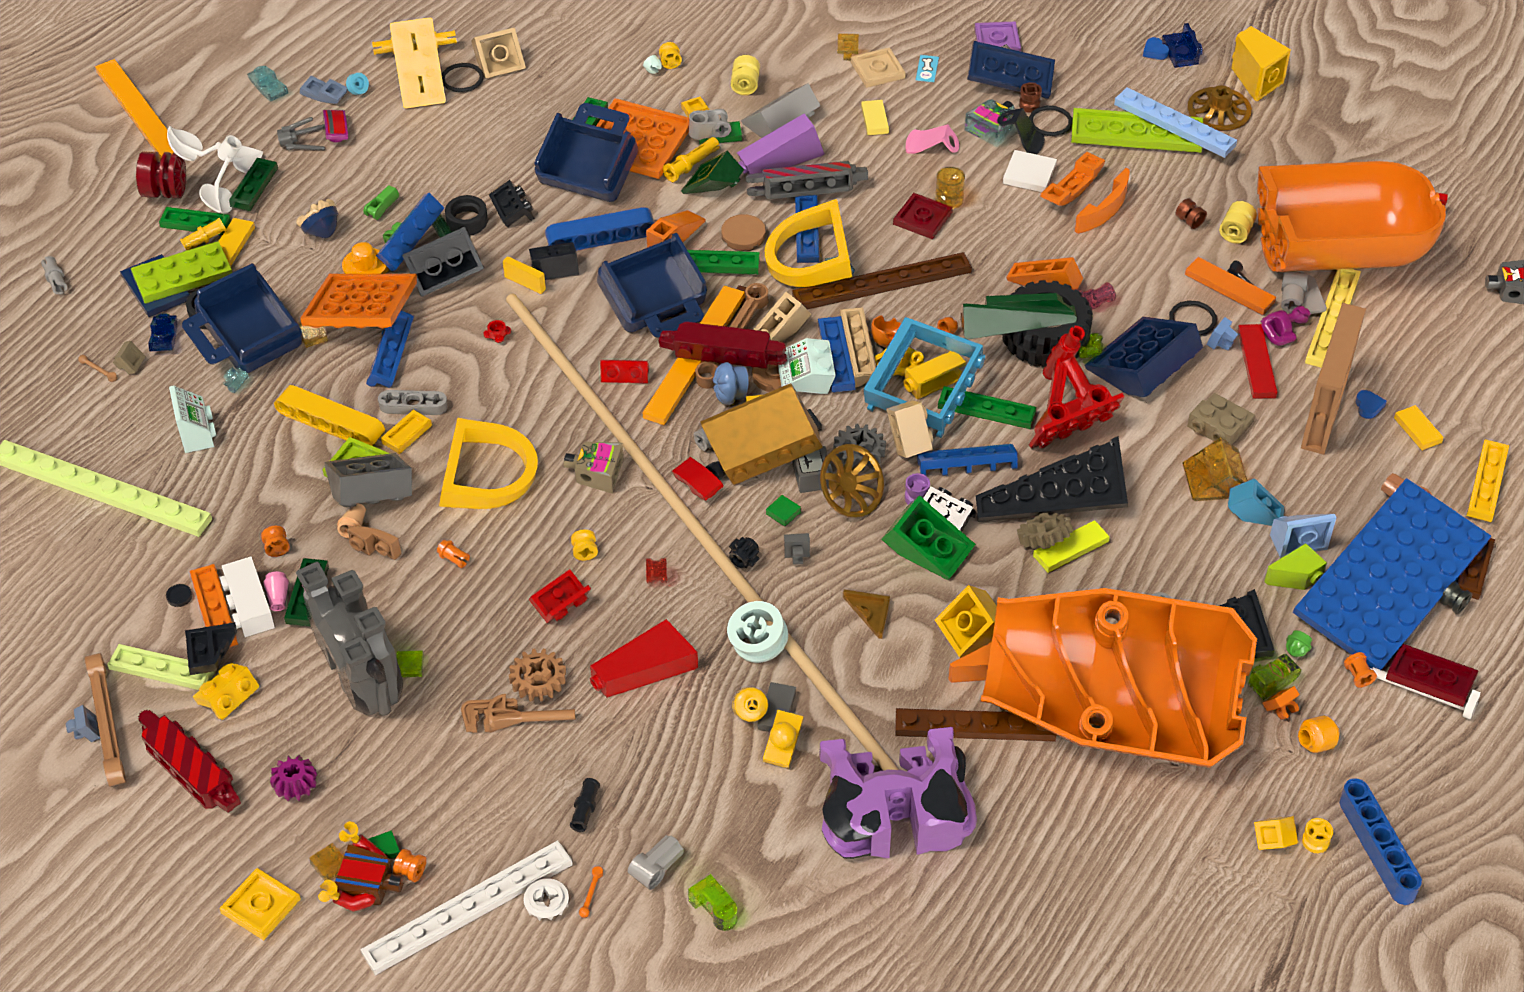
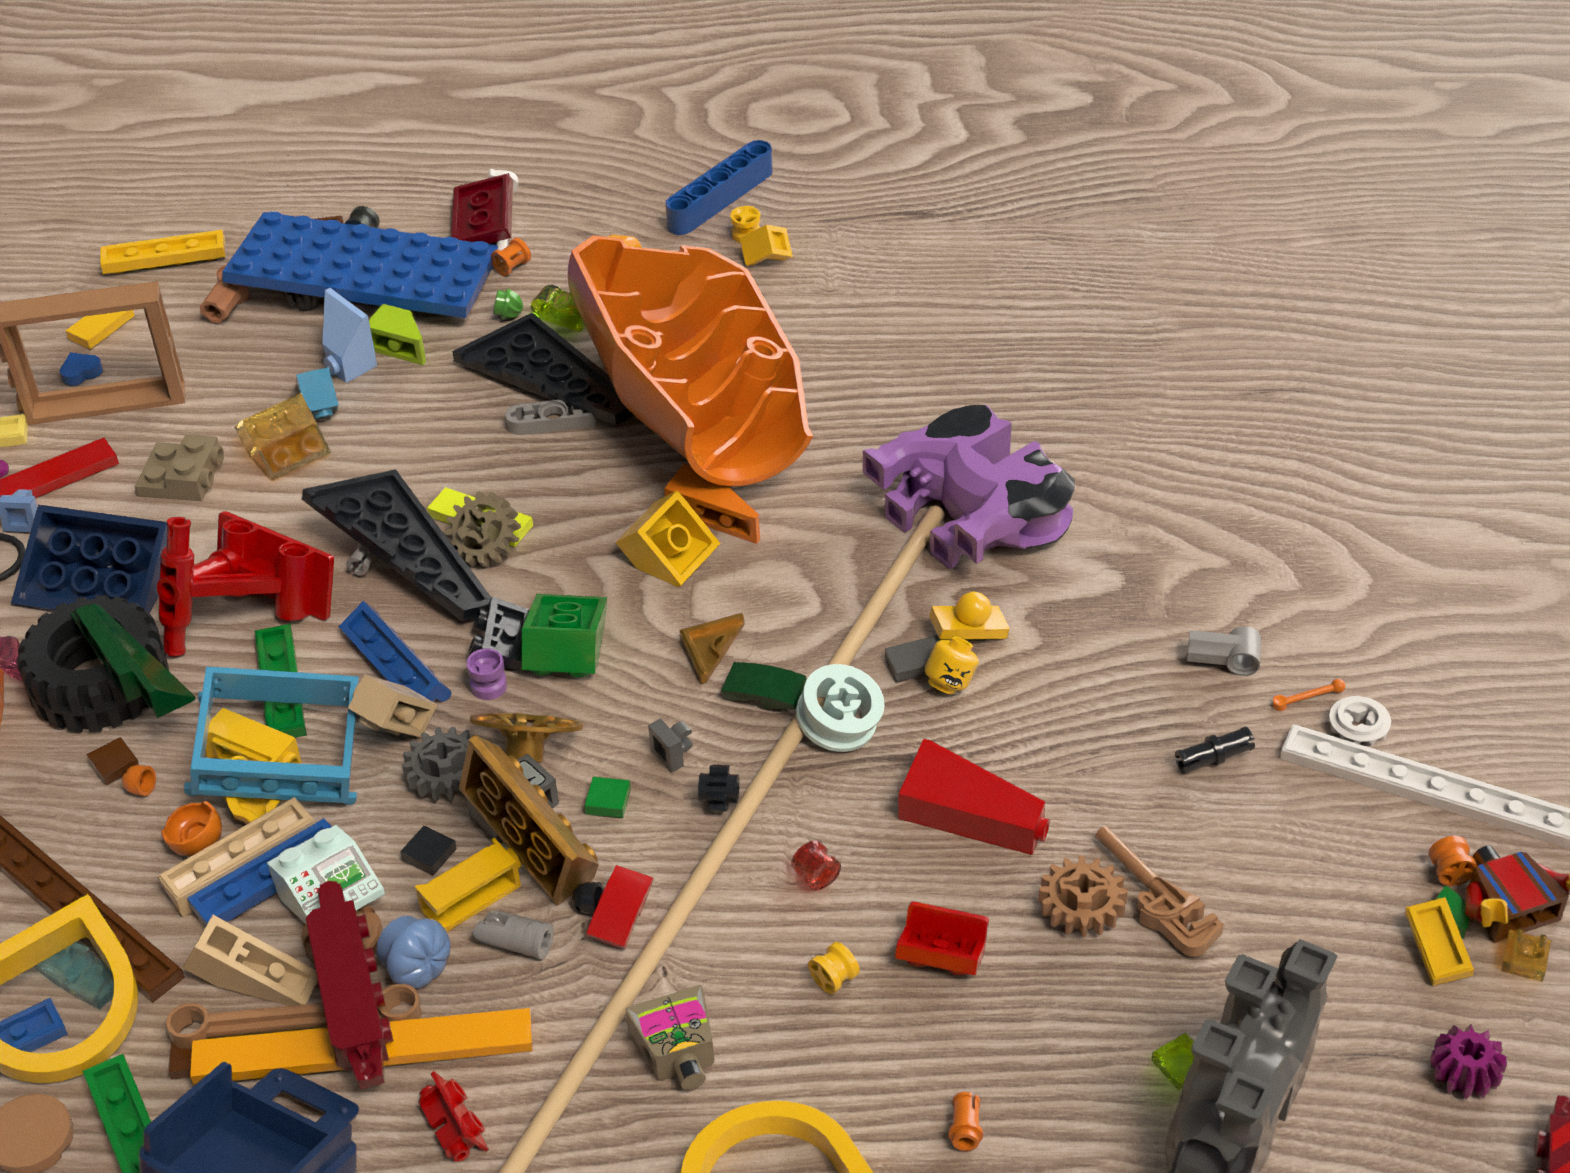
camera: 120 degrees left, 5 degrees down
(371, 820) = (1439, 941): none -> yellow tile
(715, 902) = (1224, 580): clear neon green leg -> none
(807, 611) = (768, 684): none -> dark green slope
(969, 724) = (823, 512): reddish brown plate -> none

